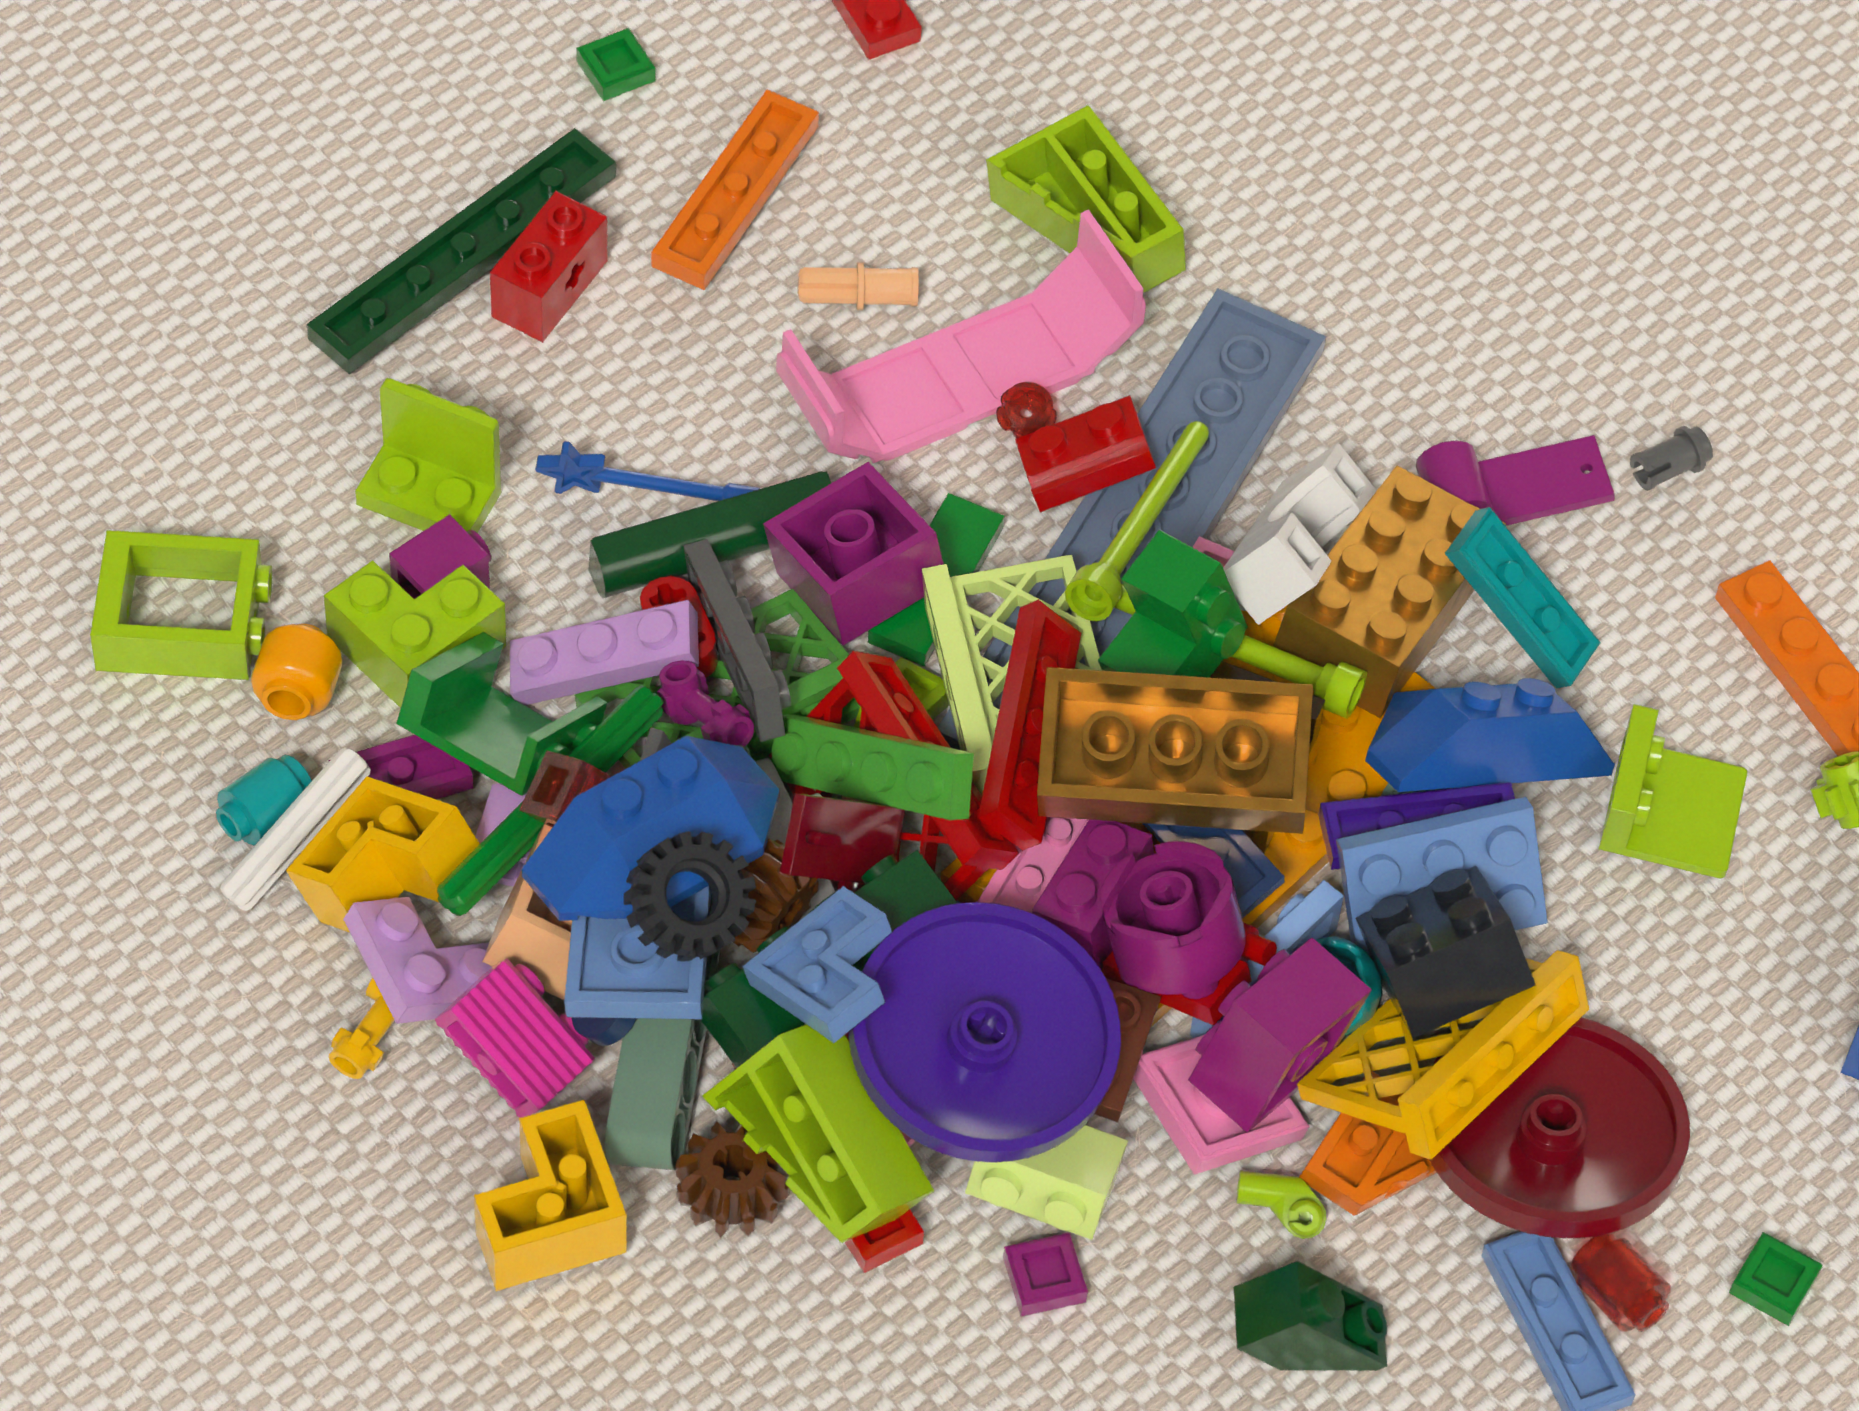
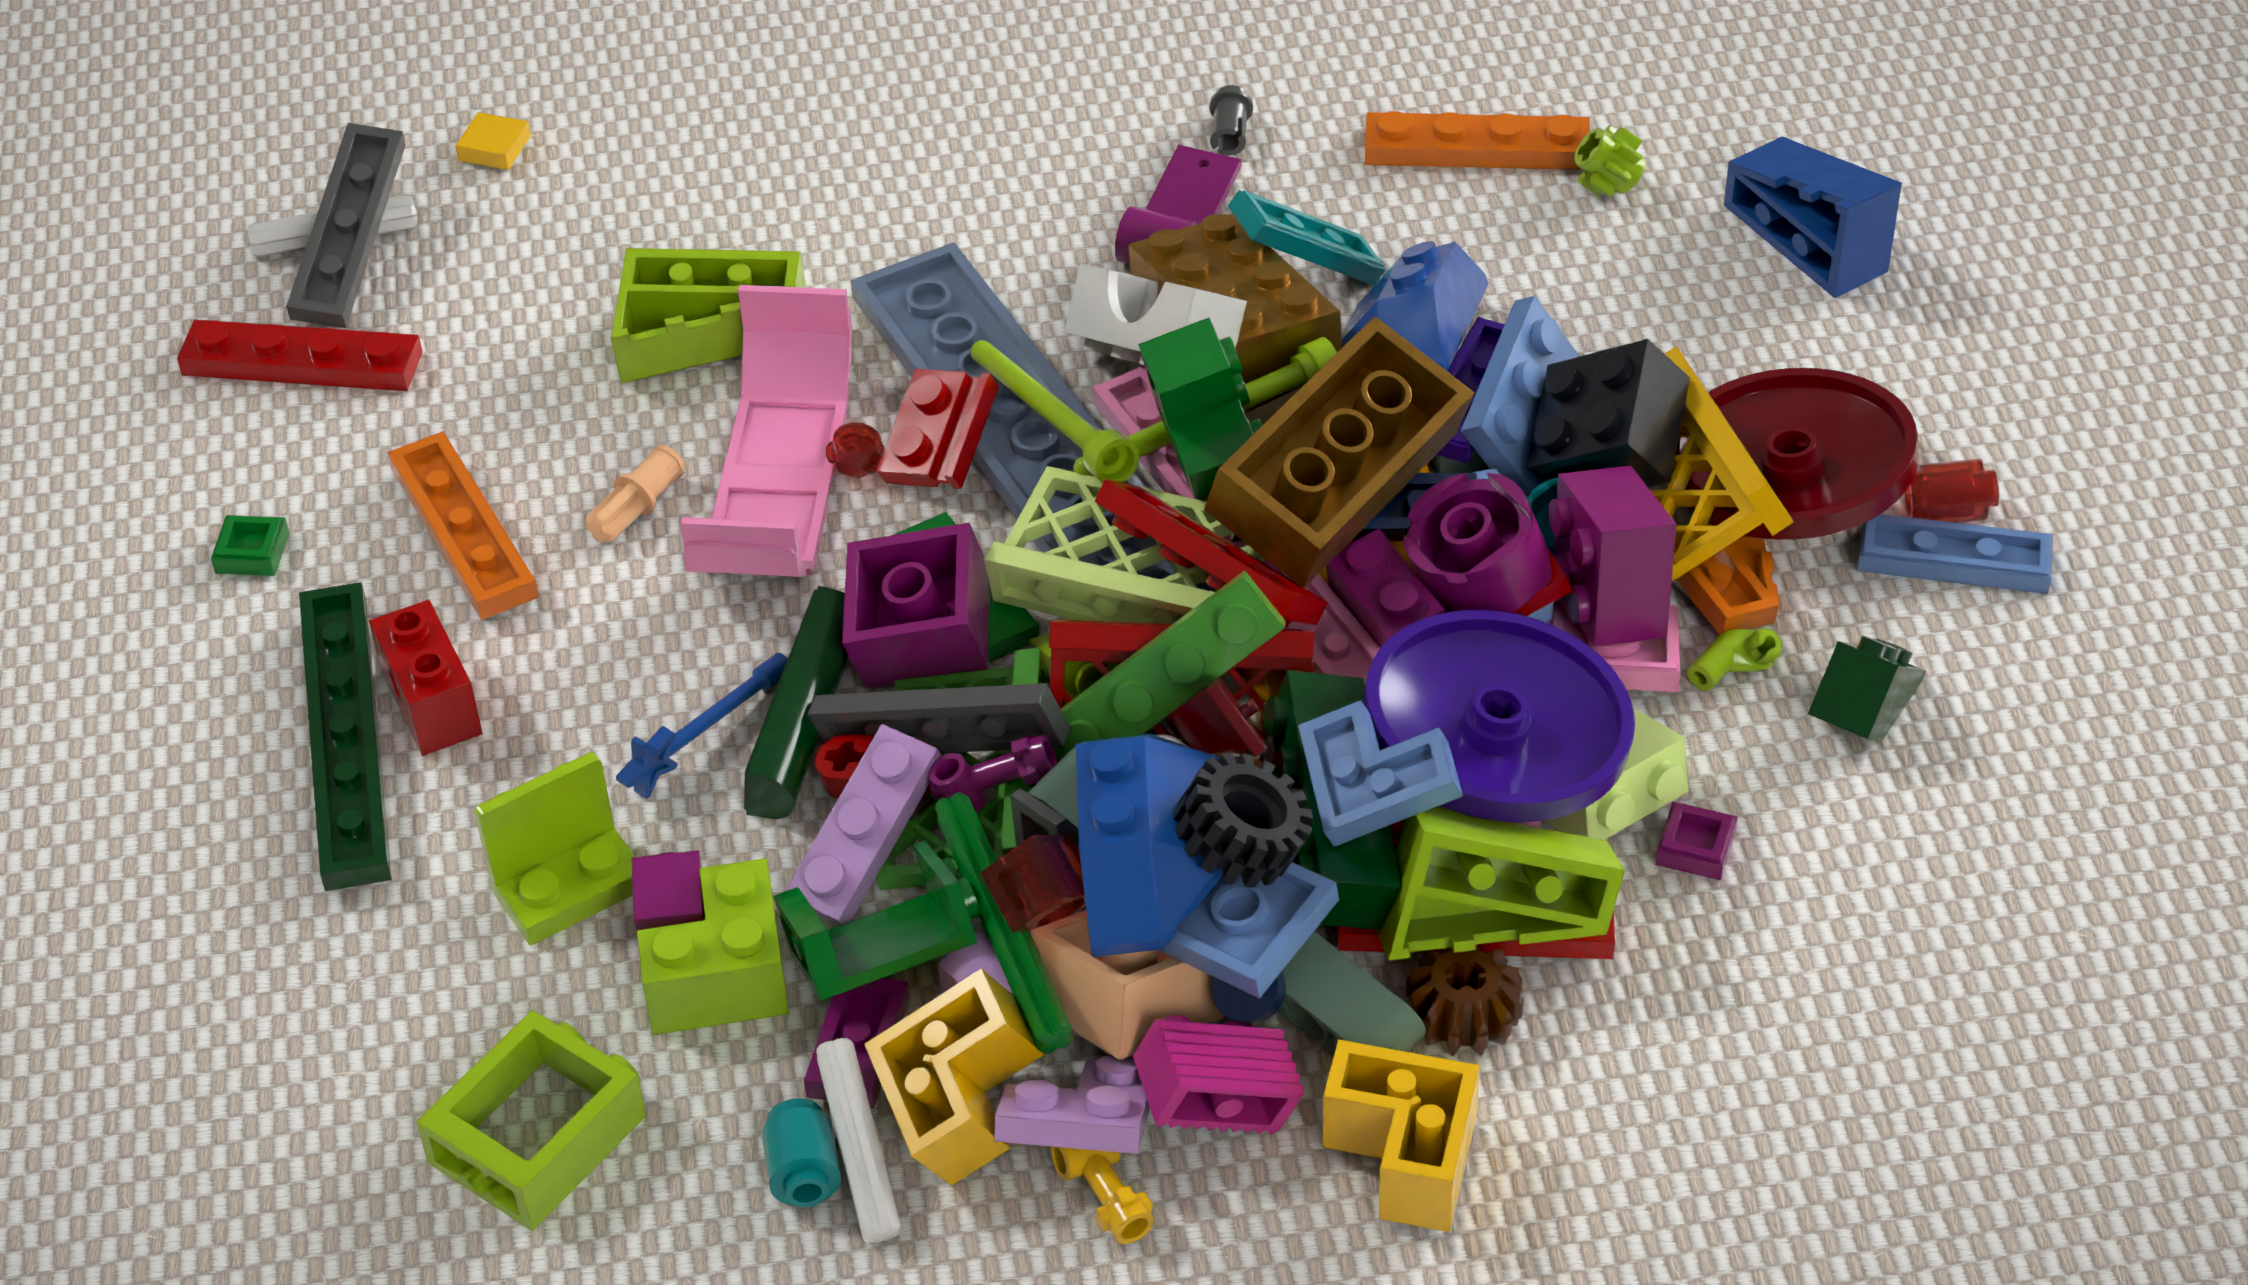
camera: 50 degrees left, 10 degrees down
(296, 671) = (687, 1059): light orange head -> none
(1671, 803) = (1537, 260): lime bracket -> none
(1775, 1279) = (1996, 413): green tile -> none

